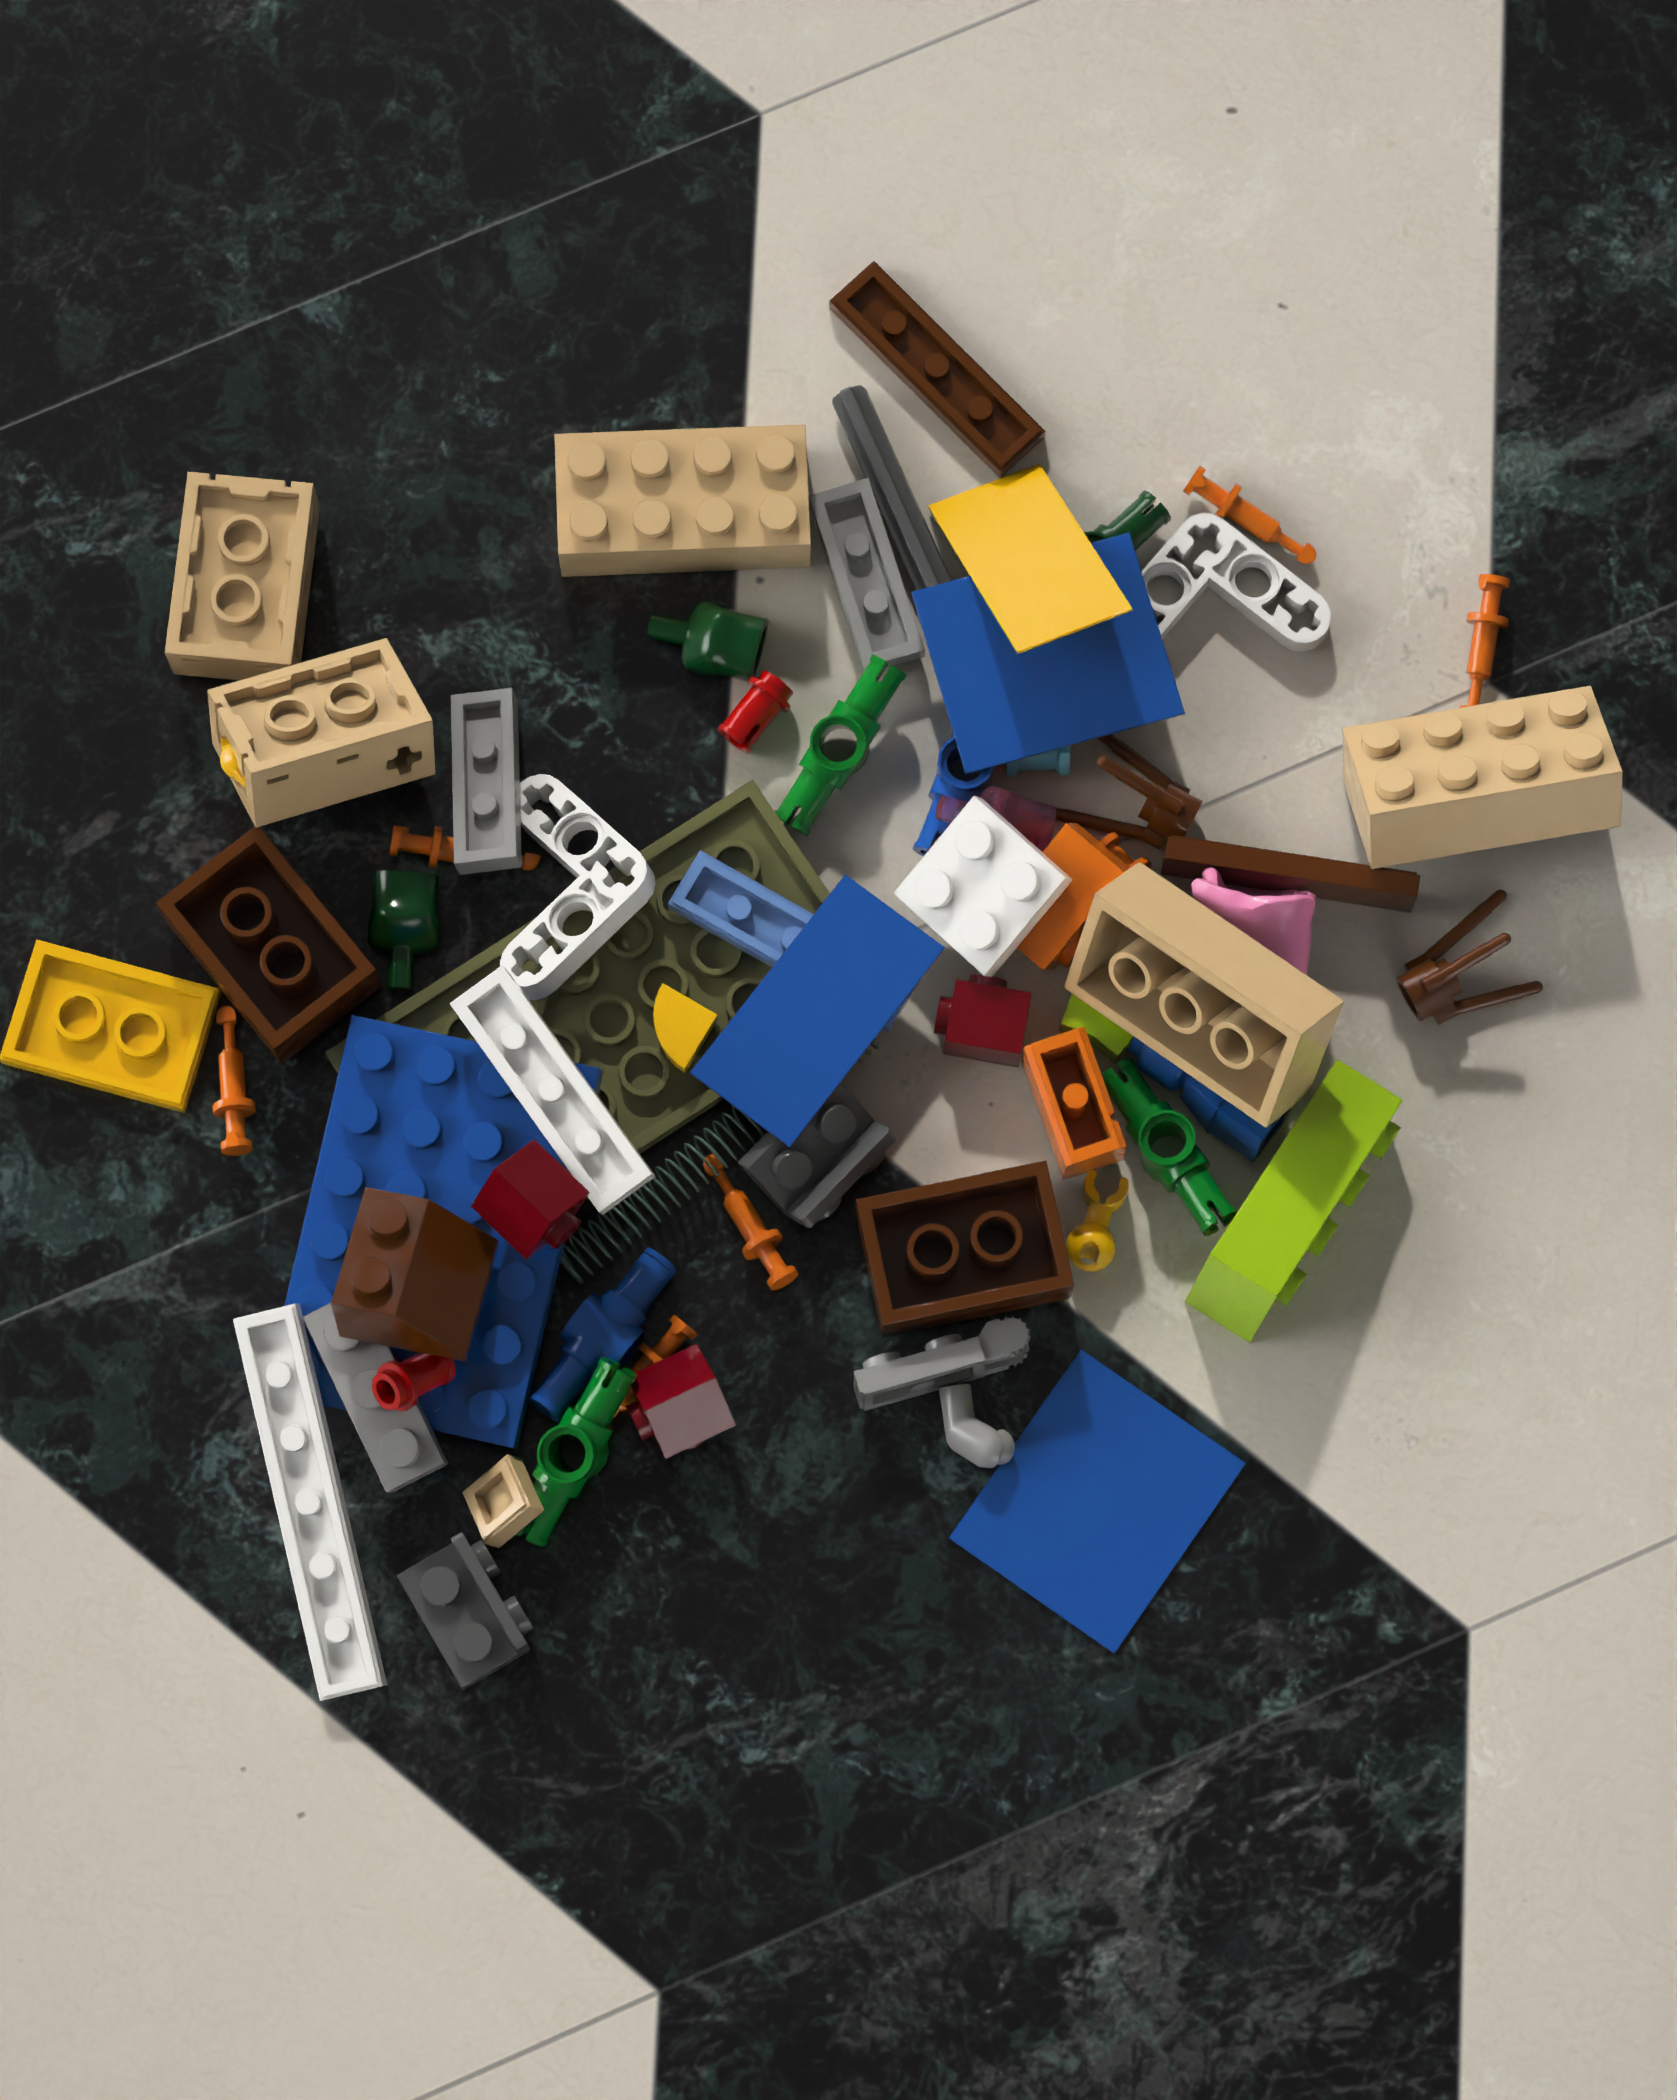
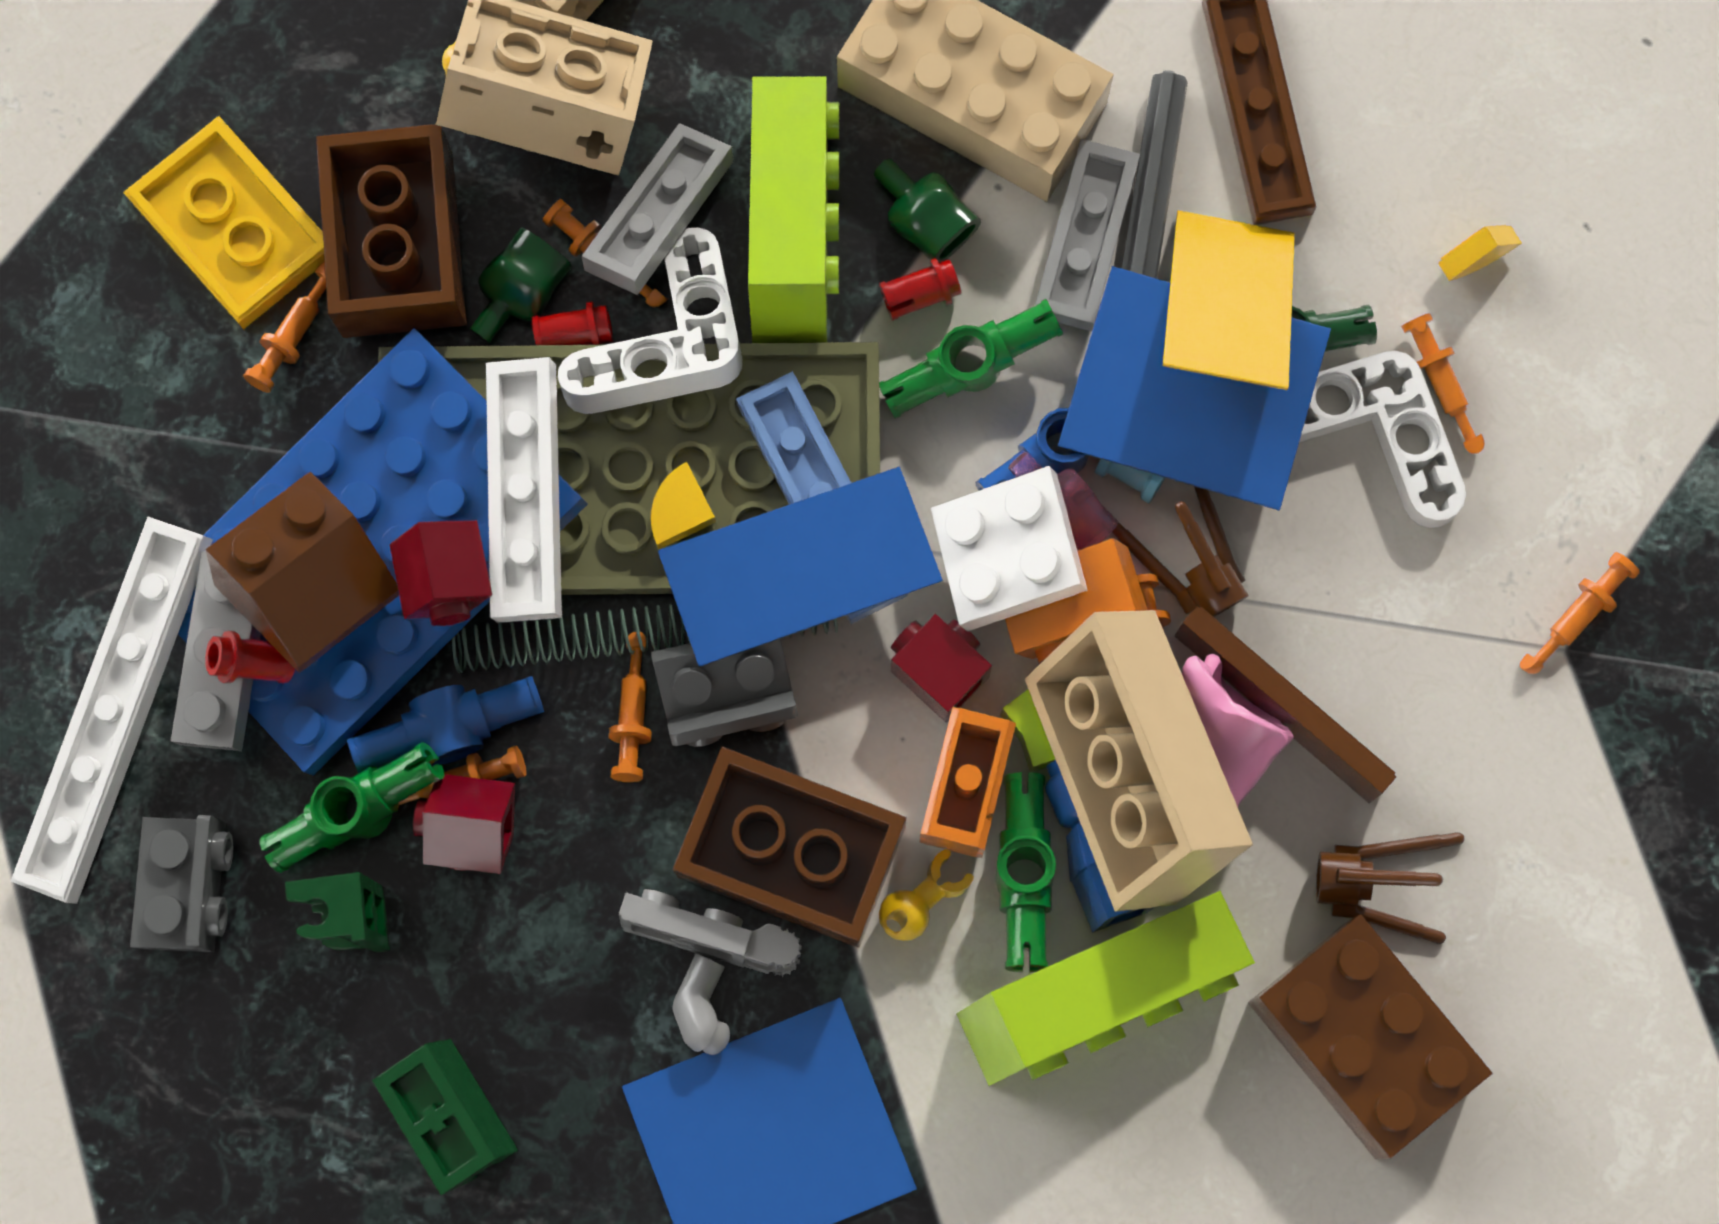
camera: 35 degrees right, 0 degrees up
(480, 930) = (575, 327): none -> red pin
(503, 1501) = (268, 812): tan tile -> none
(604, 710) = (791, 210): none -> lime wedge
(633, 1534) = (350, 910): none -> dark green hinge
(822, 1651) = (444, 1115): none -> dark green hinge
(1206, 385) = (1479, 251): none -> yellow tile
(1482, 777) = (1508, 726): tan brick -> none
(1531, 1103) = (1370, 1038): none -> reddish brown brick

